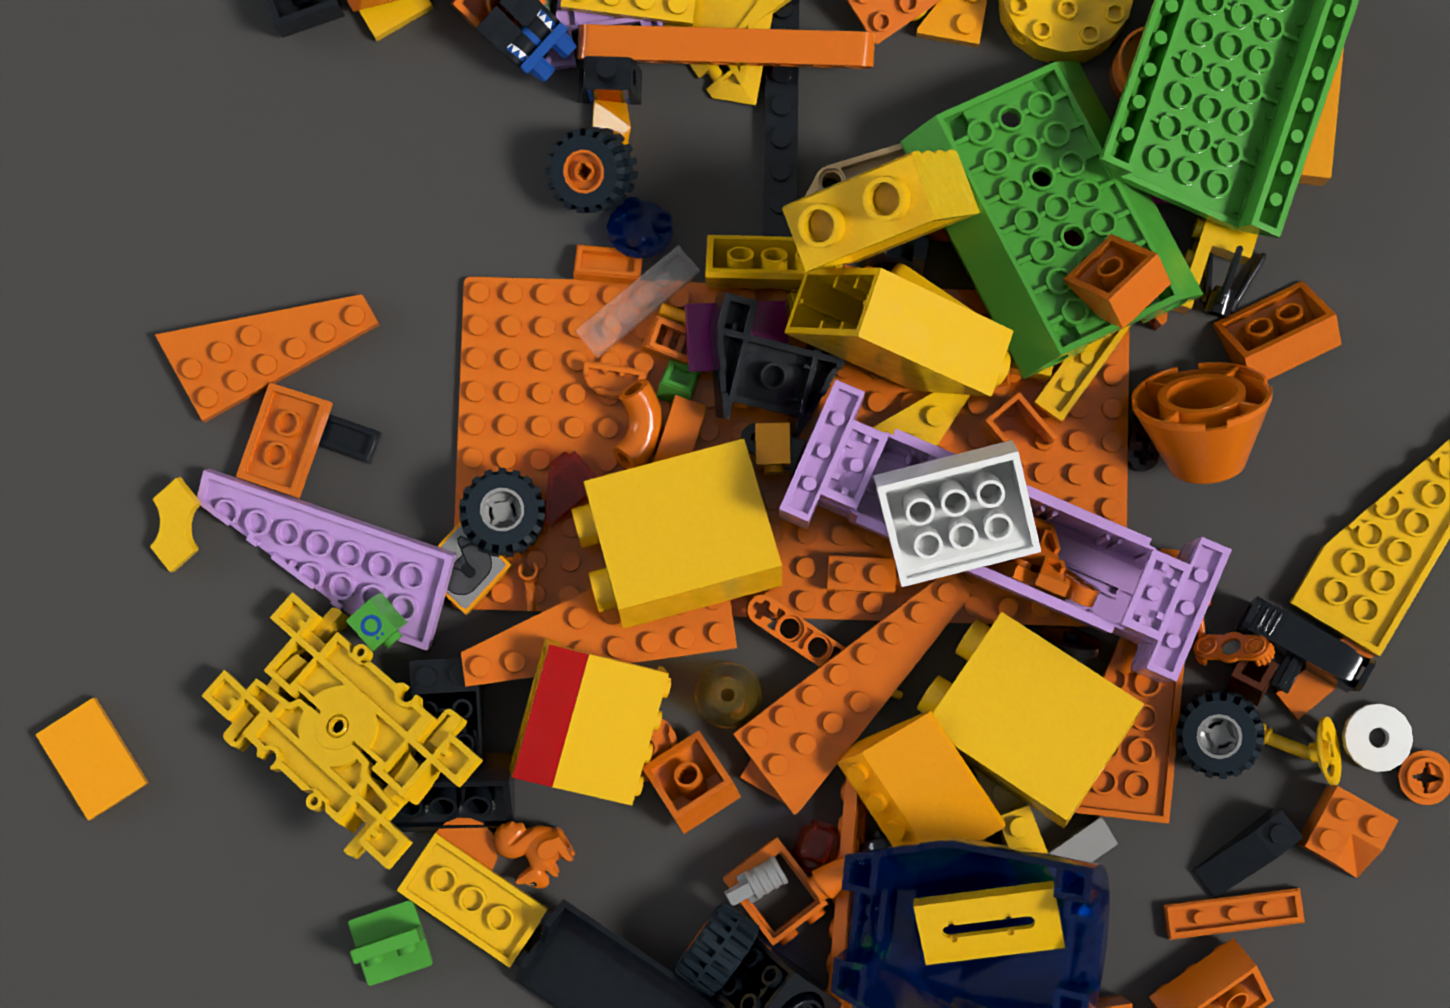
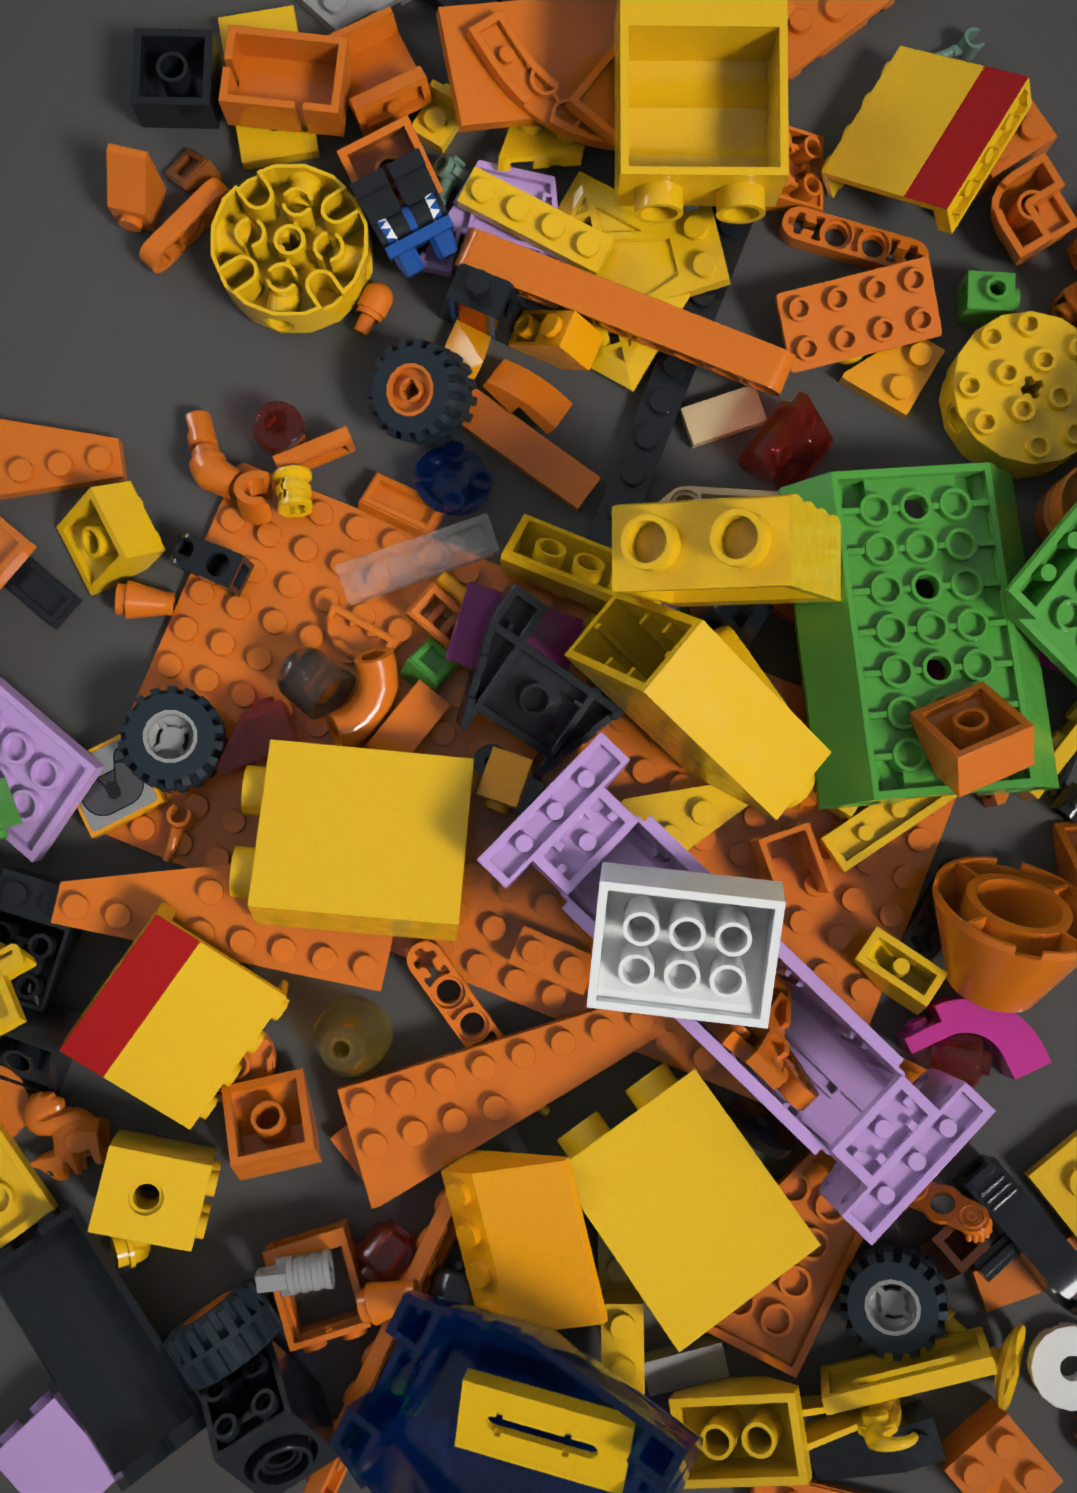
camera: 10 degrees right, 0 degrees up
(300, 92) = (133, 188): none -> orange slope
(337, 58) = (191, 170): none -> dark orange slope
(350, 104) = (183, 226): none -> orange beam
(386, 374) = (110, 536): none -> yellow slope
(414, 80) = (292, 248): none -> yellow brick
(432, 415) = (142, 601): none -> orange cone
(456, 294) = (222, 478): none -> orange piece
(476, 365) = (211, 563): none -> black leg
(479, 236) = (278, 427): none -> clear red head
(519, 284) = (293, 490): none -> yellow bush
(523, 114) = (372, 306): none -> orange cylinder
(523, 248) = (318, 451): none -> orange tile
(589, 424) = (307, 675): none -> clear smoke helmet
(617, 916) = (128, 1252): none -> yellow plate
(645, 865) = (165, 1217): none -> yellow brick
(668, 136) = (519, 387): none -> orange slope
(679, 86) = (557, 338): none -> light orange slope
(693, 183) = (530, 452): none -> orange tile
(834, 98) = (723, 416): none -> tan tile
(894, 102) = (788, 443): none -> clear red bracket
(1132, 481) = (900, 971): none -> yellow slope
(1157, 869) = (759, 1434): none -> yellow slope
(1206, 525) = (962, 1057): none -> clear red head
(1230, 498) = (1007, 1035): none -> dark pink arch
(1242, 786) = (951, 1361): none -> yellow piece

